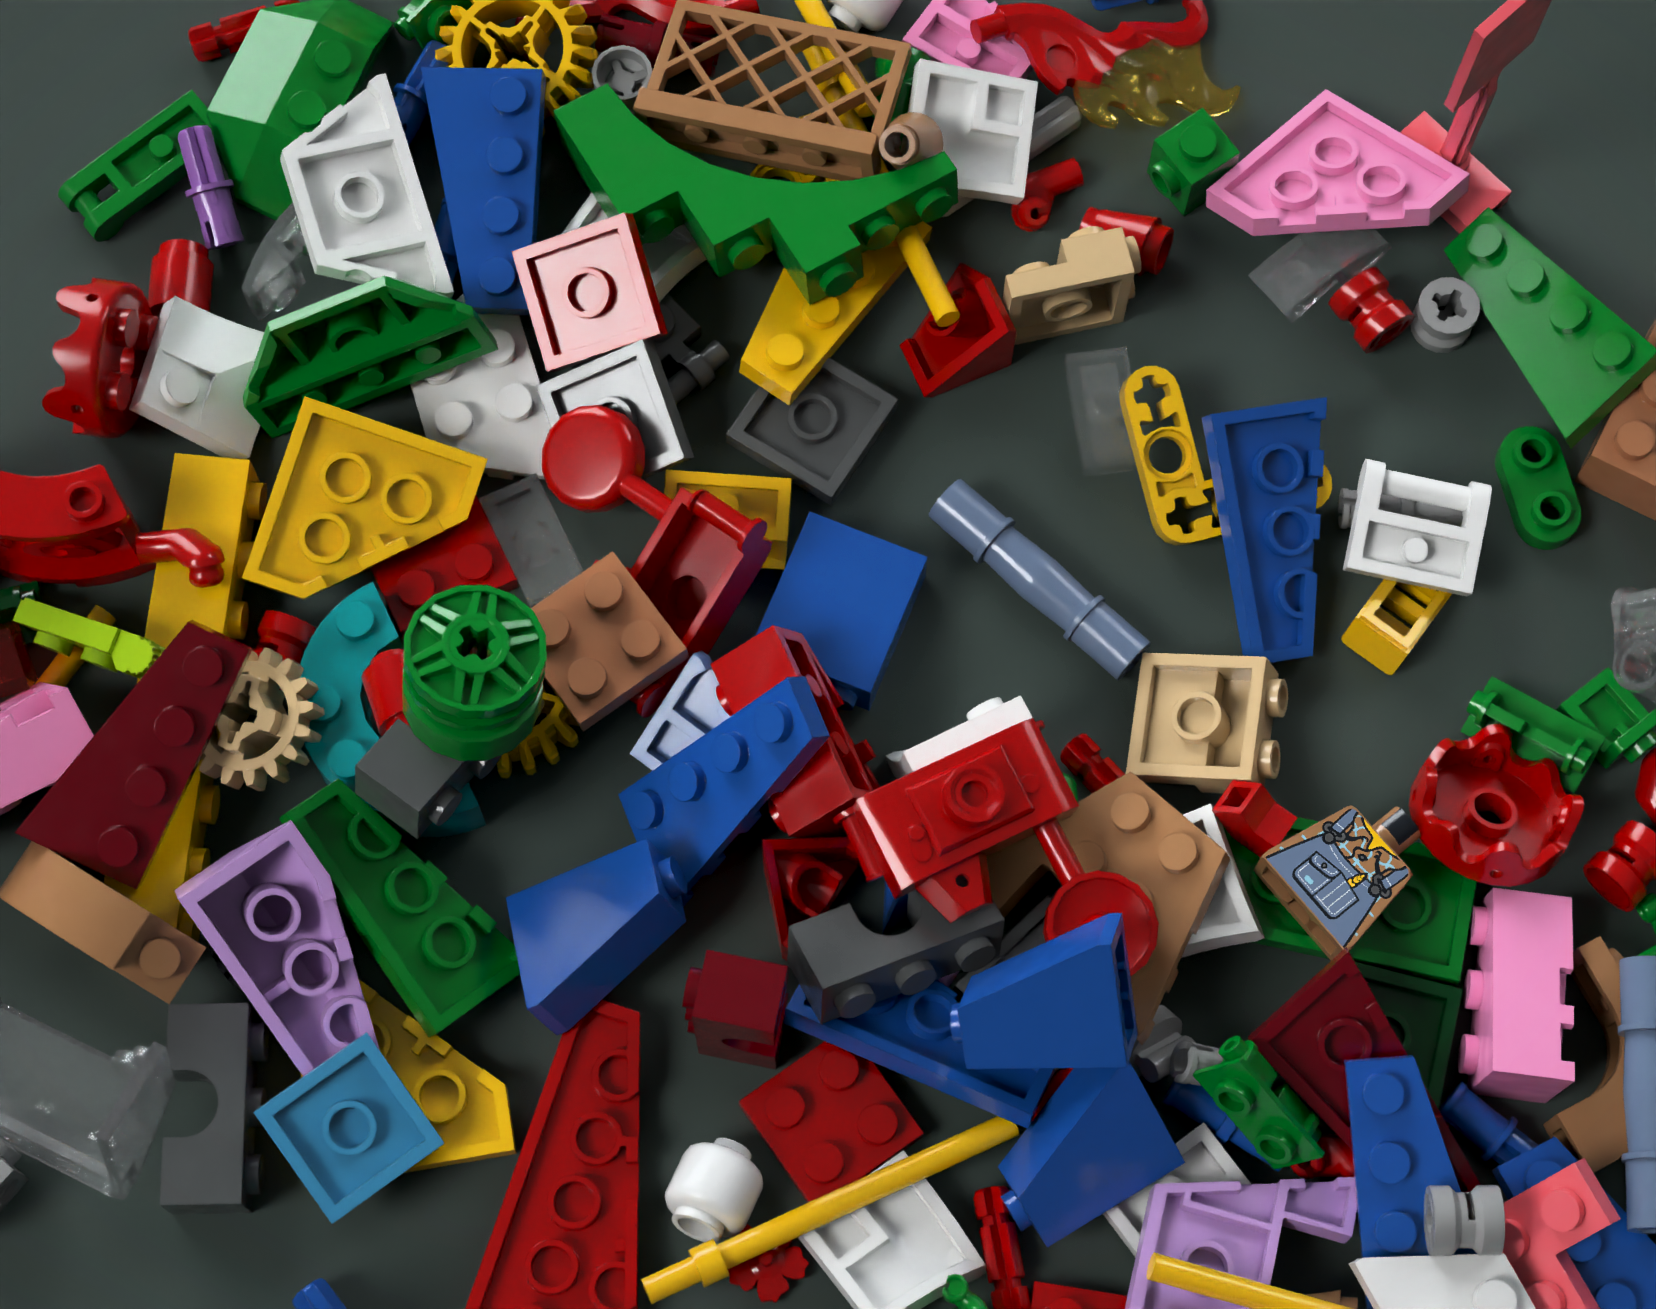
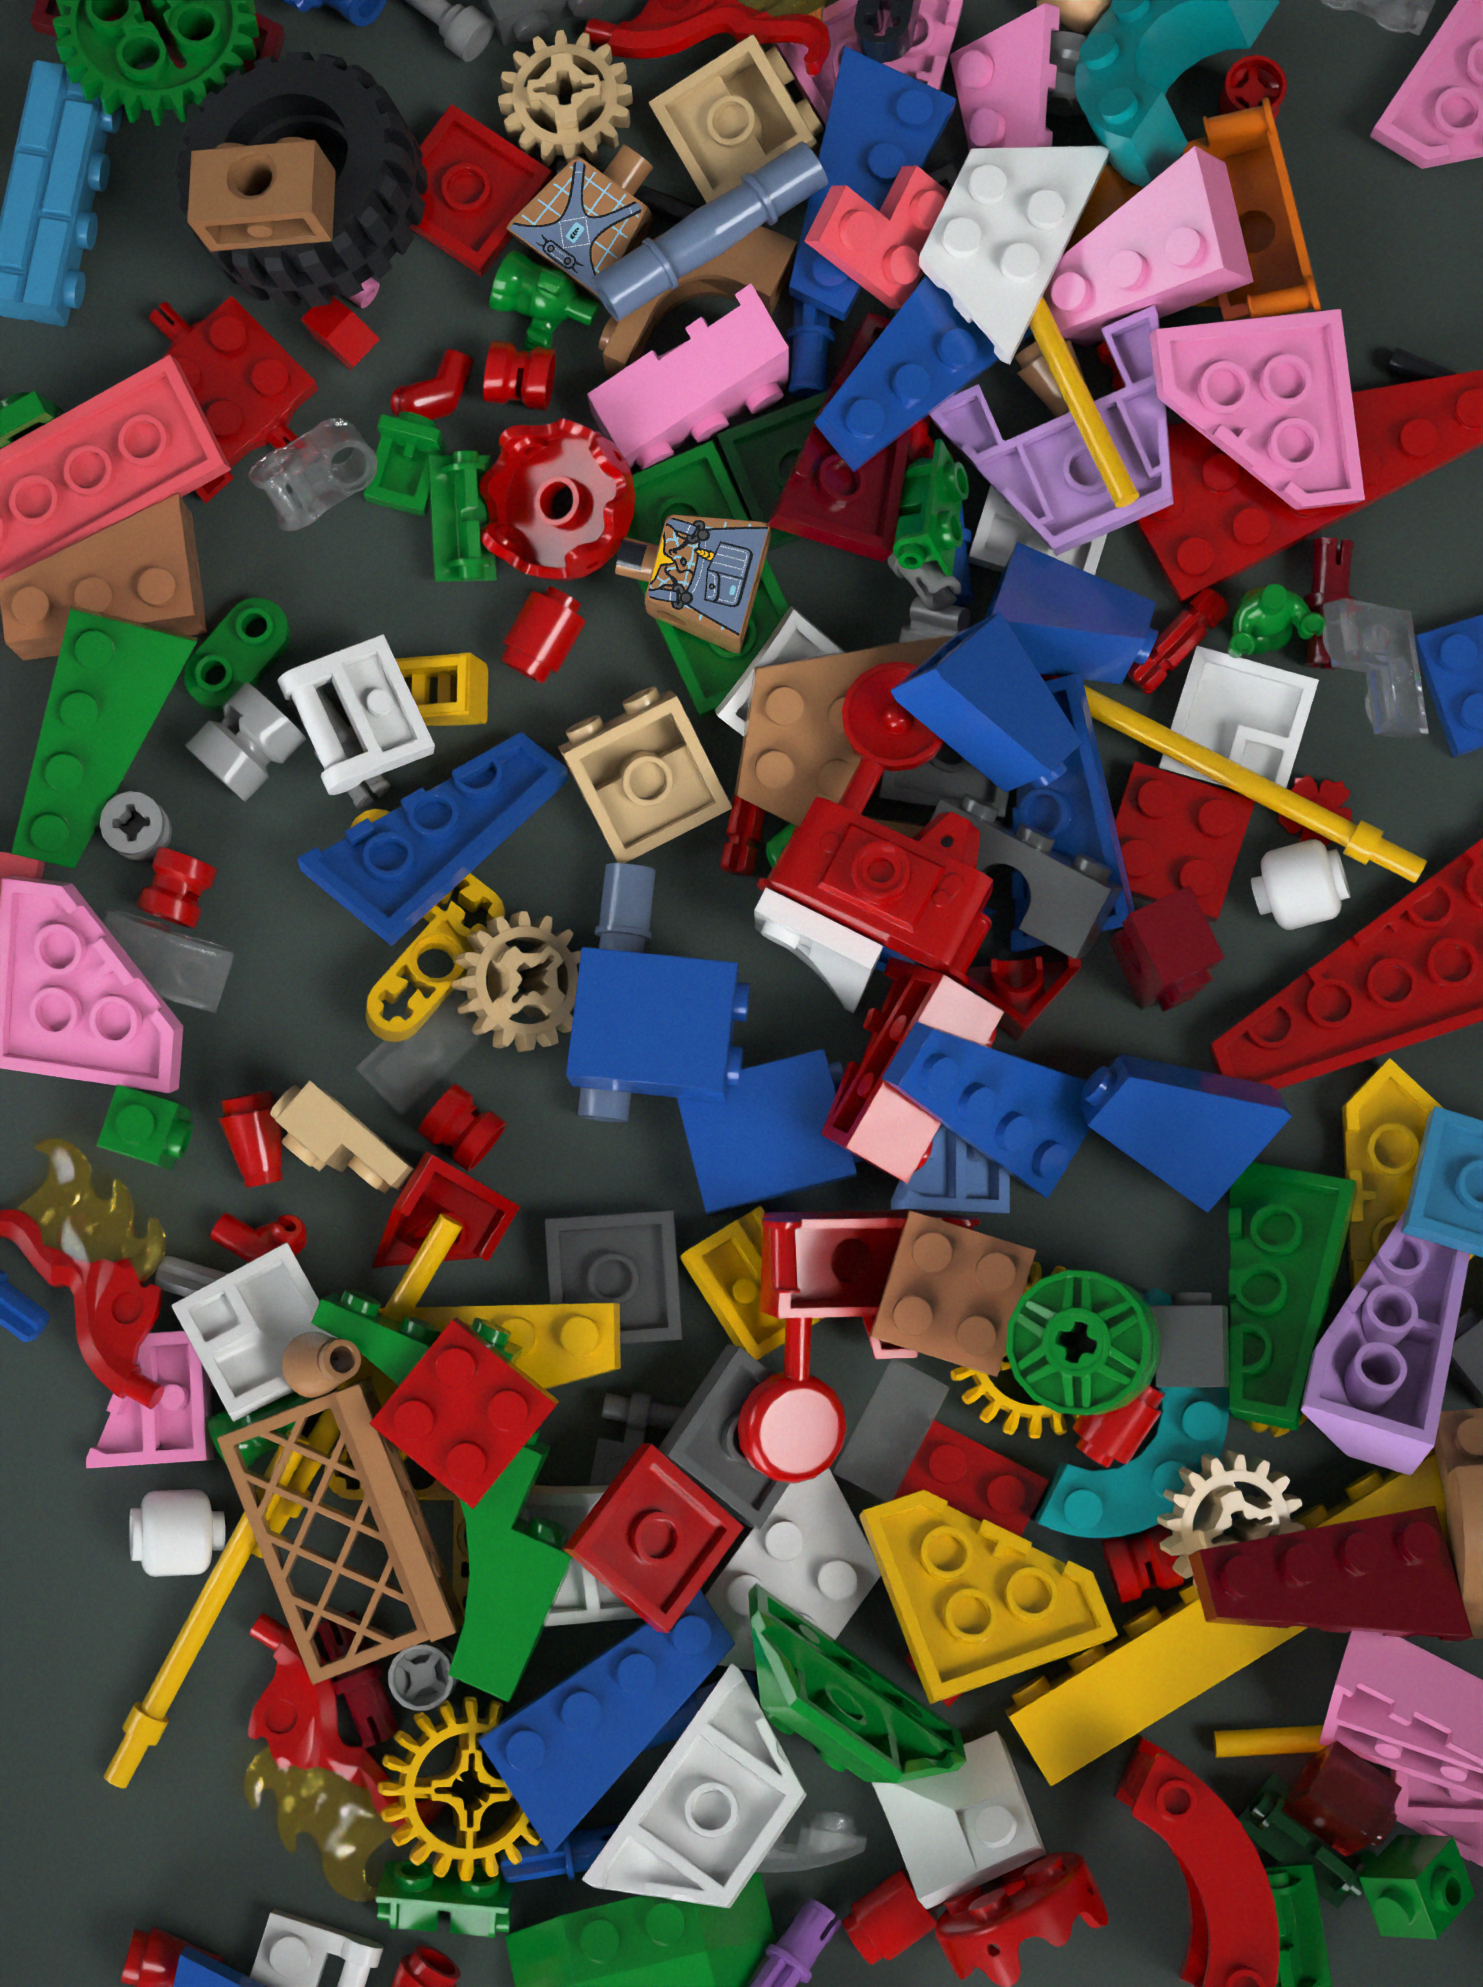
camera: 120 degrees left, 10 degrees up
(102, 643) = (1258, 1706): lime hinge -> none
(187, 548) = (1128, 1698): red arm -> none
(789, 208) = (464, 1412): none -> red plate
(985, 567) = (656, 1025): none -> blue brick
(1018, 390) = (458, 1124): none -> red wheel
(1091, 481) = (546, 995): none -> tan gear
(1253, 816) = (703, 674): red piece -> none
(1384, 728) = (543, 634): none -> red brick
(1454, 426) = (245, 741): none -> light grey wheel
(1464, 1220) = (920, 295): light grey wheel -> none

